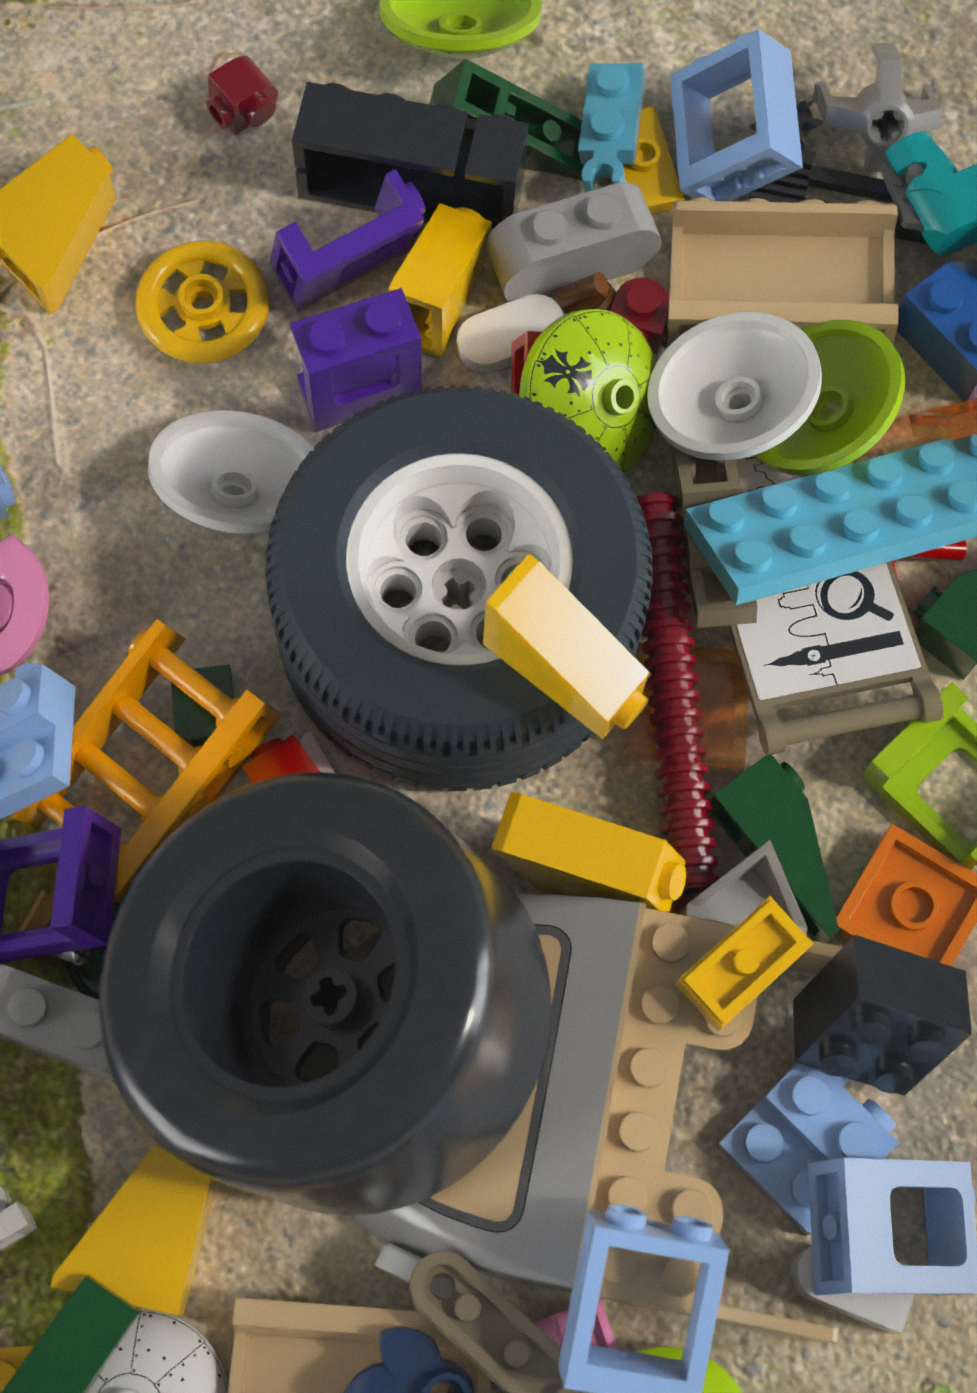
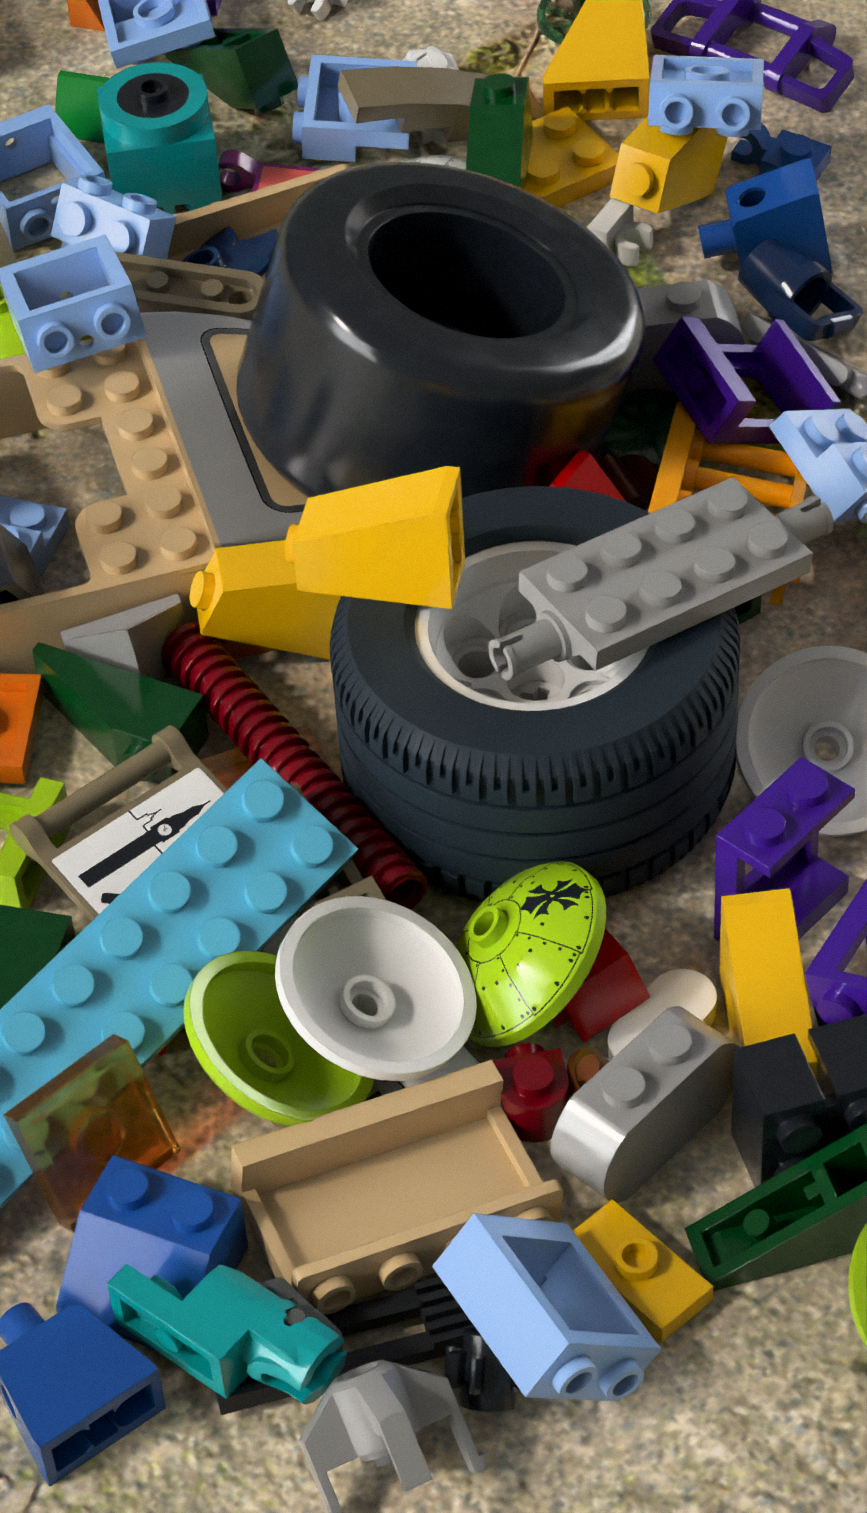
camera: 160 degrees right, 25 degrees down
(331, 519) = (659, 577): none -> light grey plate
(610, 121) = (695, 1263): medium azure plate -> none
(744, 963) = (103, 531): yellow plate -> none

